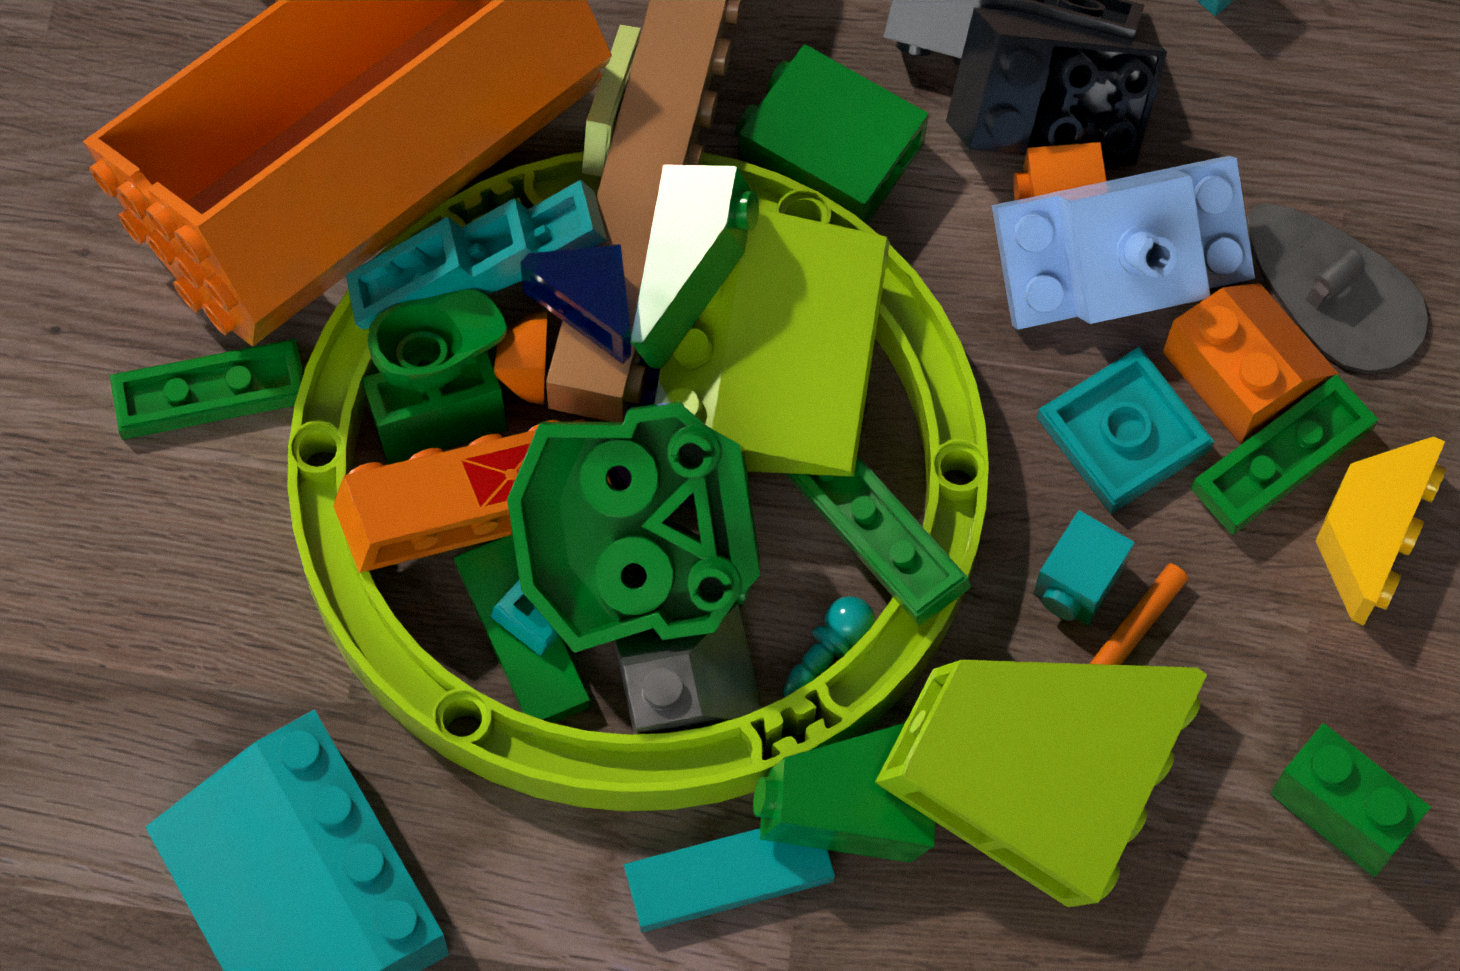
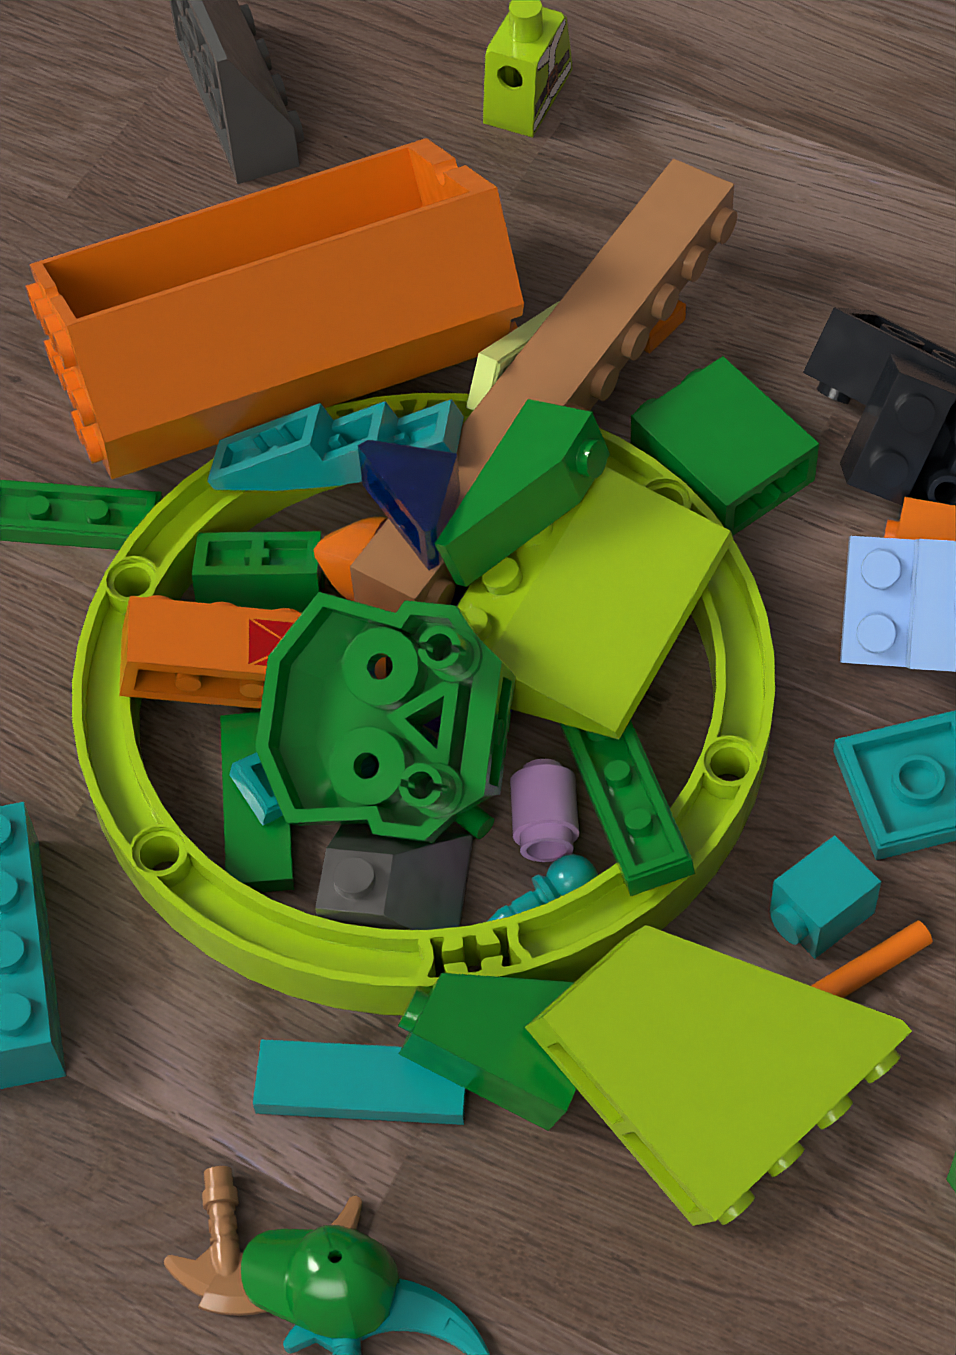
camera: 25 degrees right, 10 degrees down
(433, 337) = (265, 508): green cap -> none
(800, 560) = (544, 810): none -> lavender brick

